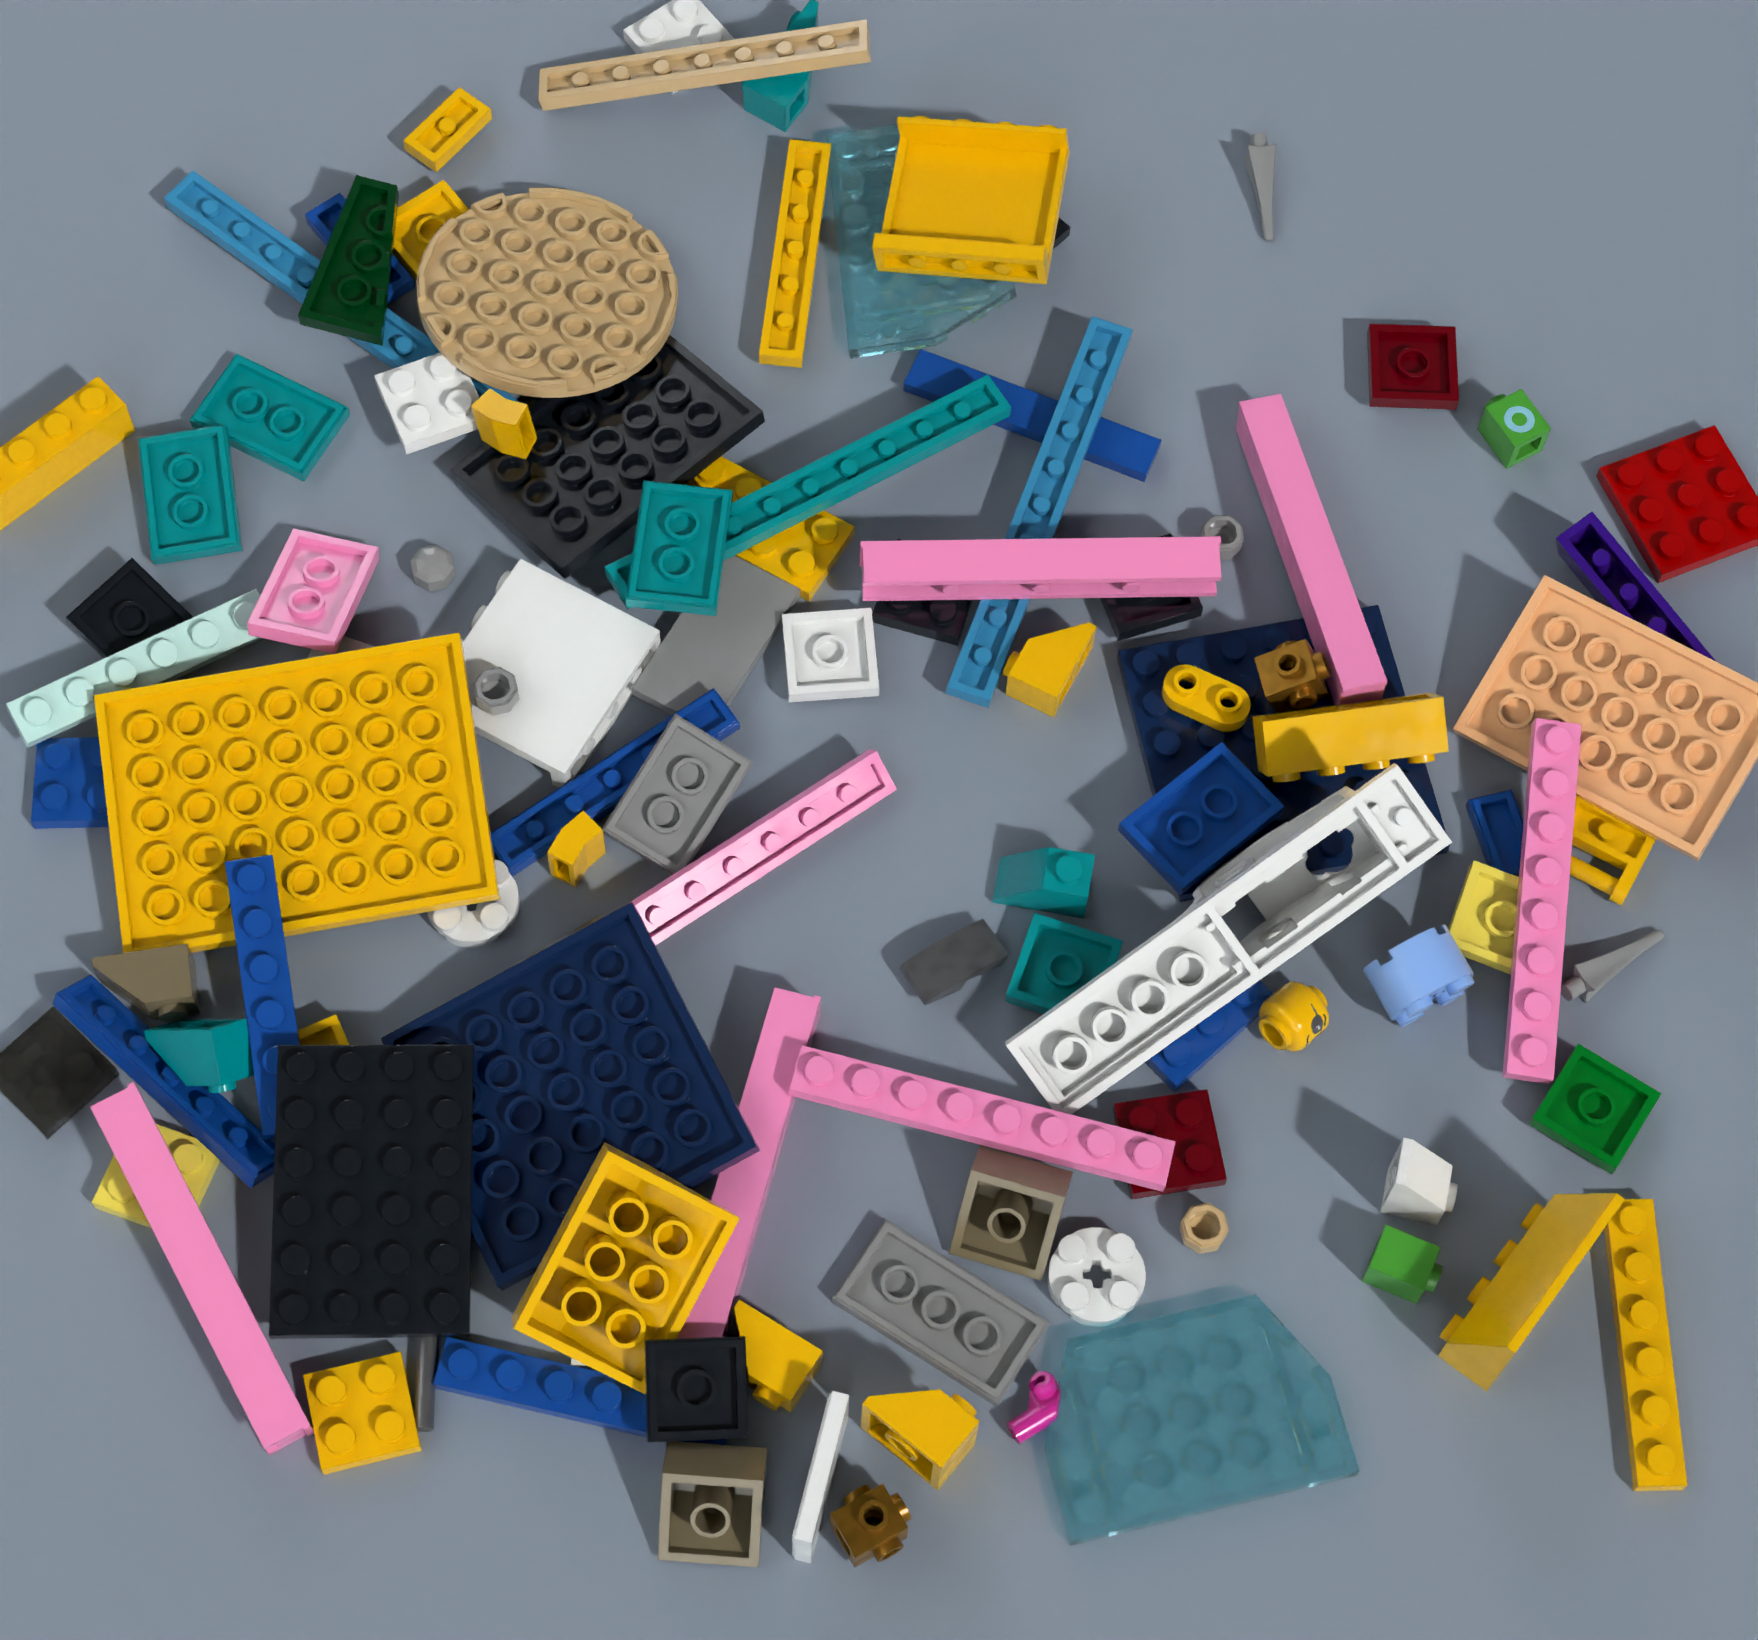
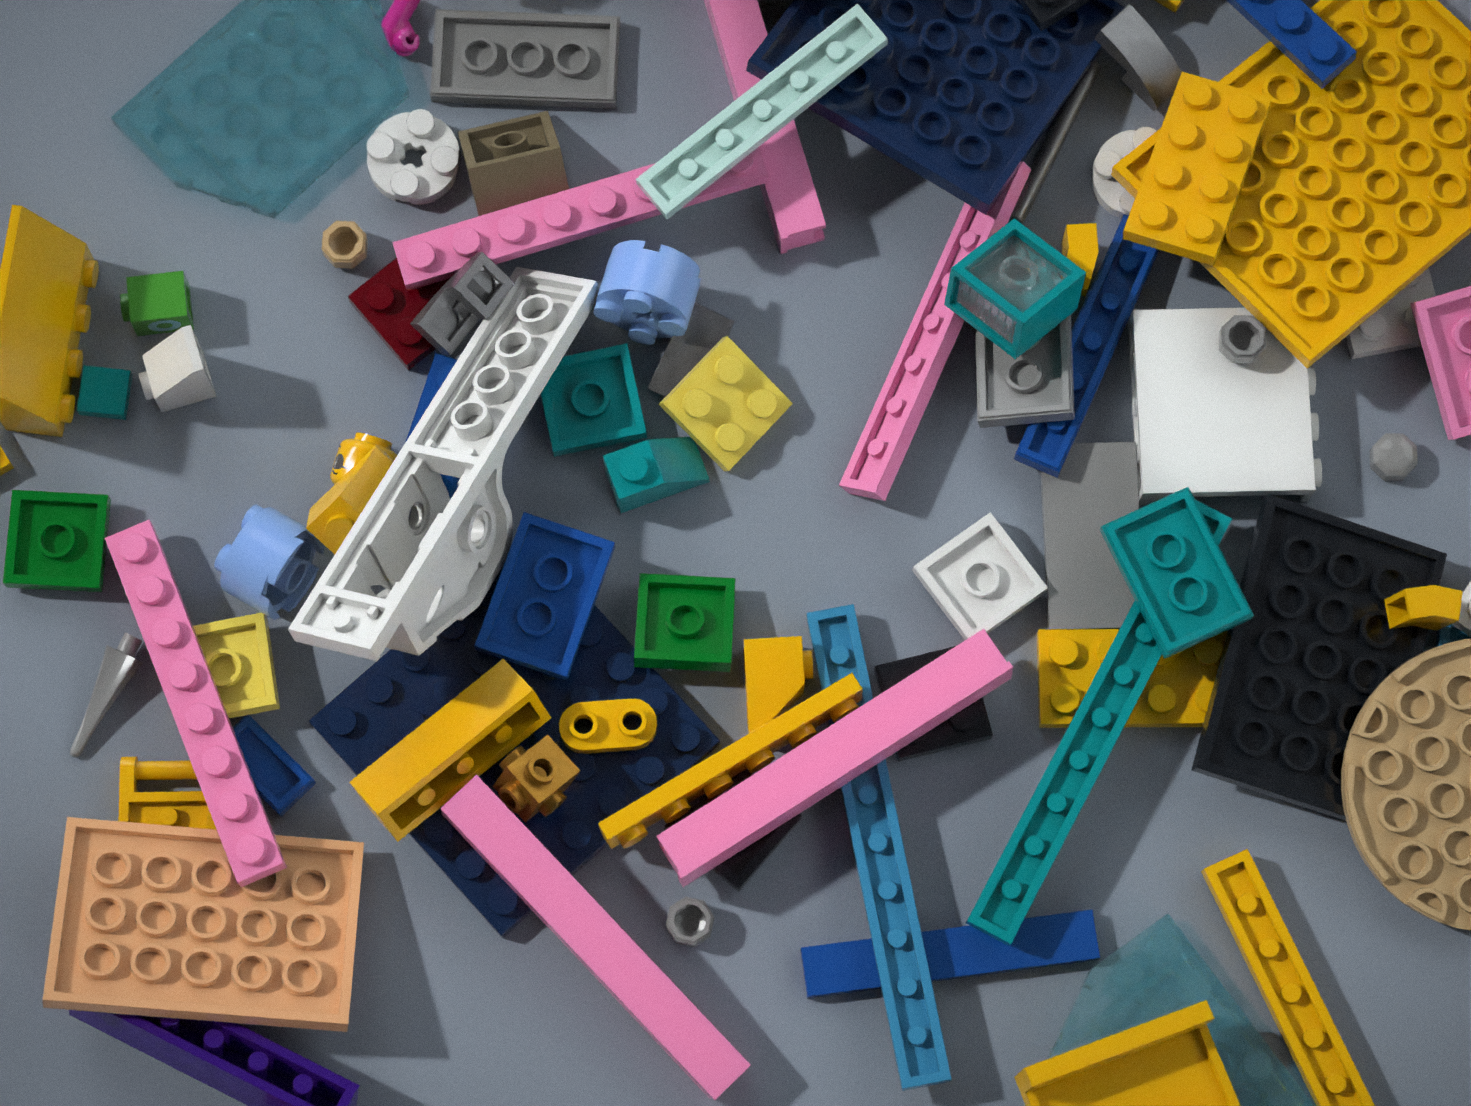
camera: 150 degrees right, 10 degrees up
(399, 989) = (1137, 47): none -> flat silver slope
(429, 846) = (1197, 168): none -> yellow plate
(656, 826) = (1014, 288): none -> piece
(776, 1083) = (762, 111): none -> light aqua plate
(951, 900) = (725, 403): none -> light yellow plate
(965, 1014) = (648, 291): none -> light blue brick
(1093, 747) = (684, 622): none -> green plate
(1124, 611) = (715, 773): none -> yellow plate
(1143, 1100) = (461, 302): none -> flat silver slope
(1326, 972) = (341, 506): none -> yellow slope
(1488, 1220) = (104, 392): none -> teal tile

